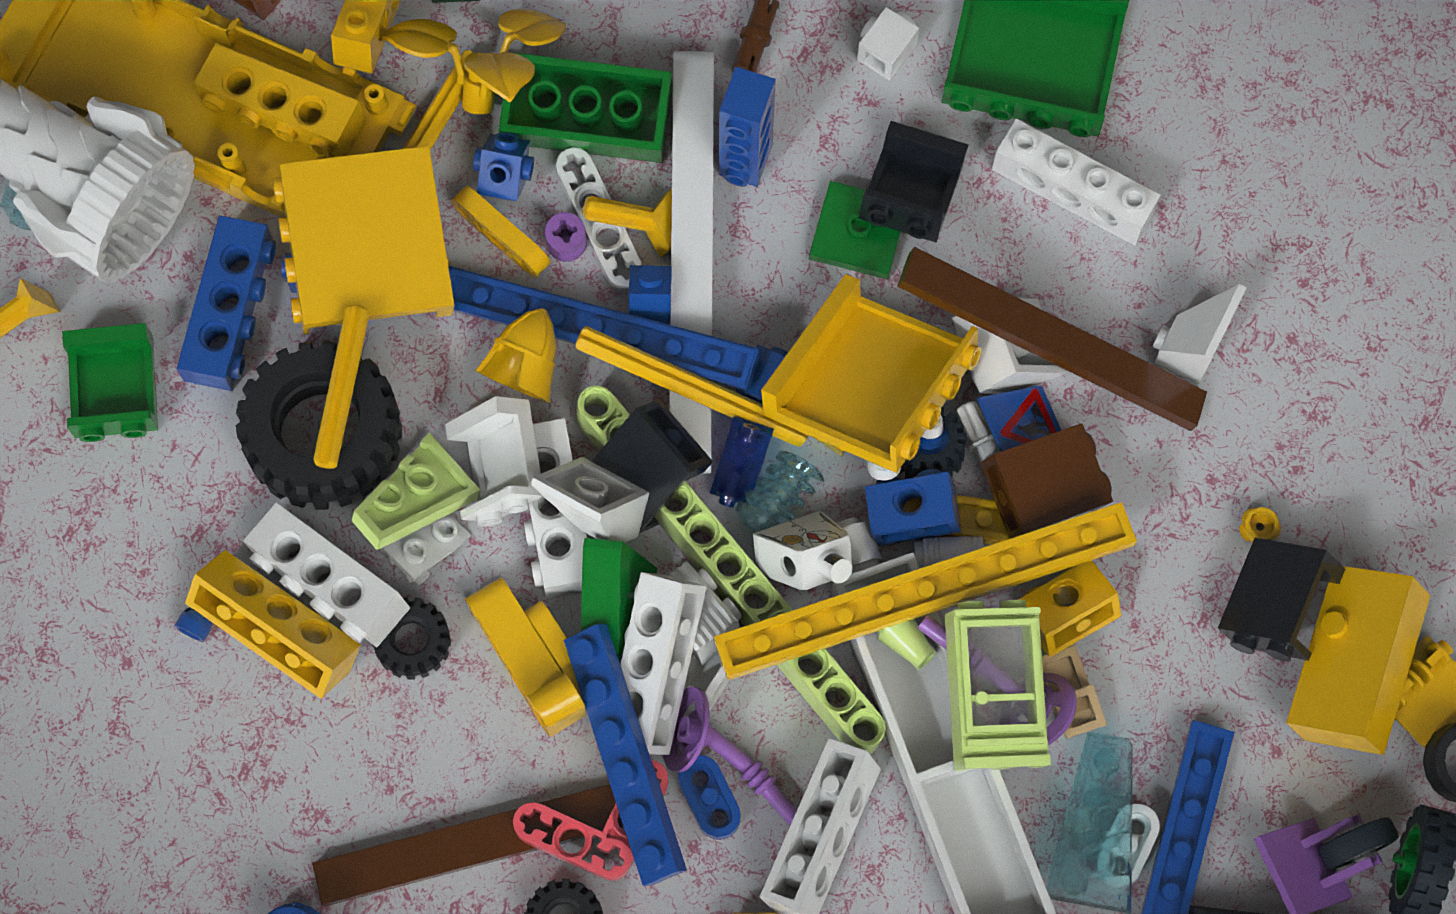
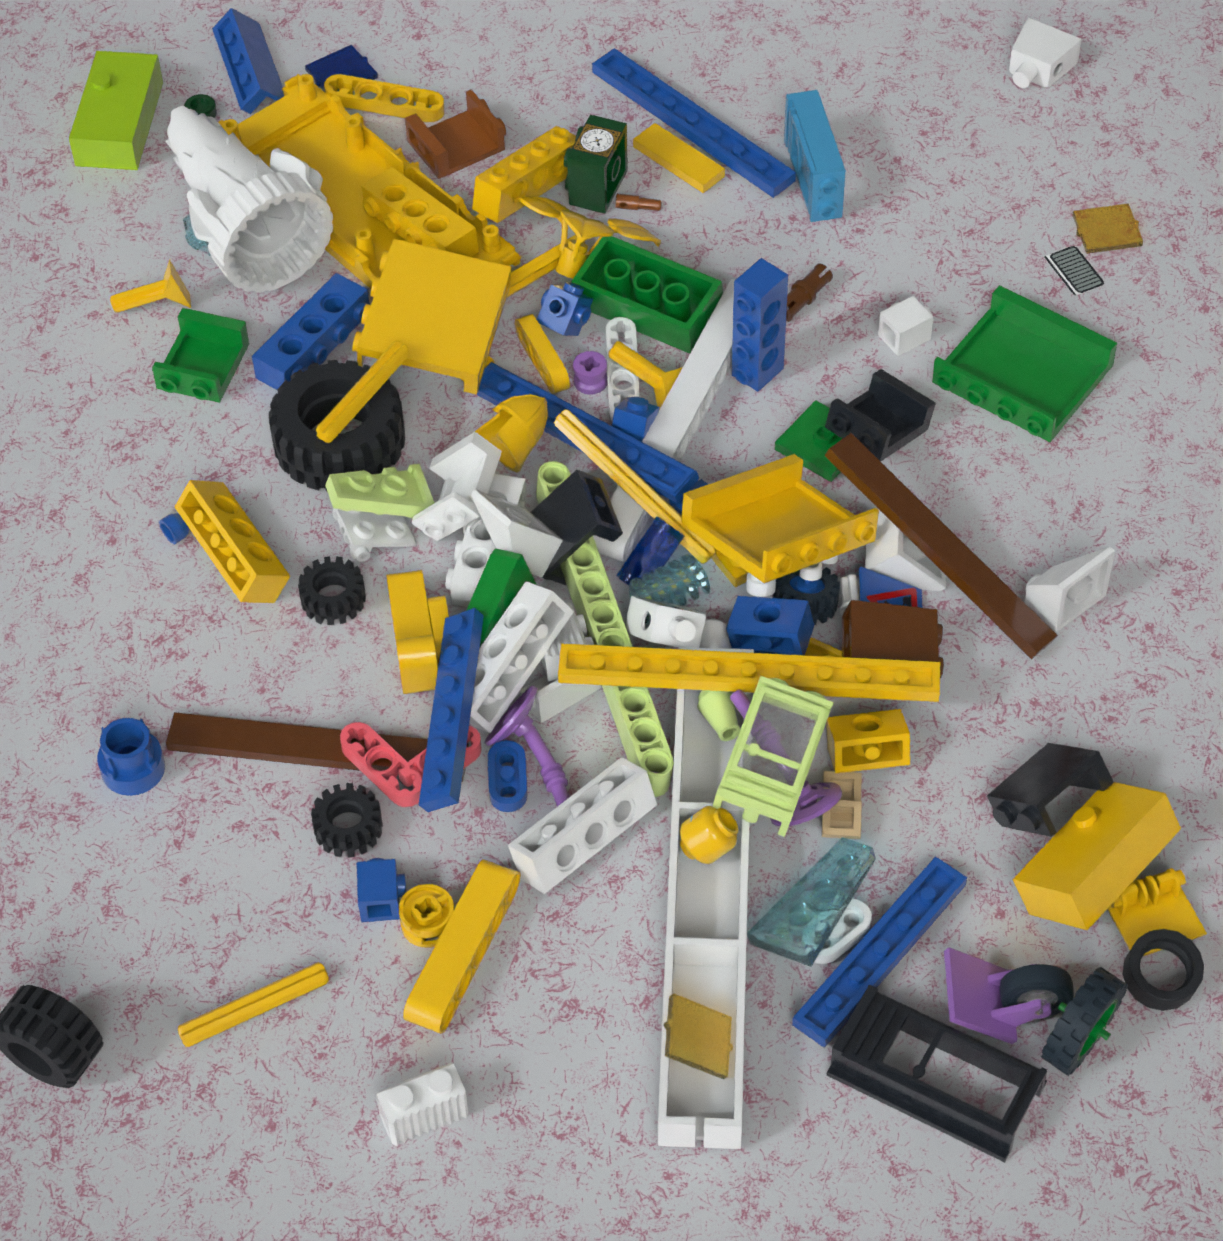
camera: 25 degrees right, 20 degrees down
(283, 533) = (288, 521): white brick -> none
(961, 799) = (708, 834): none -> yellow head
(1075, 181) = (1014, 458): white brick -> none
(1263, 516) = (1059, 735): yellow plate -> none

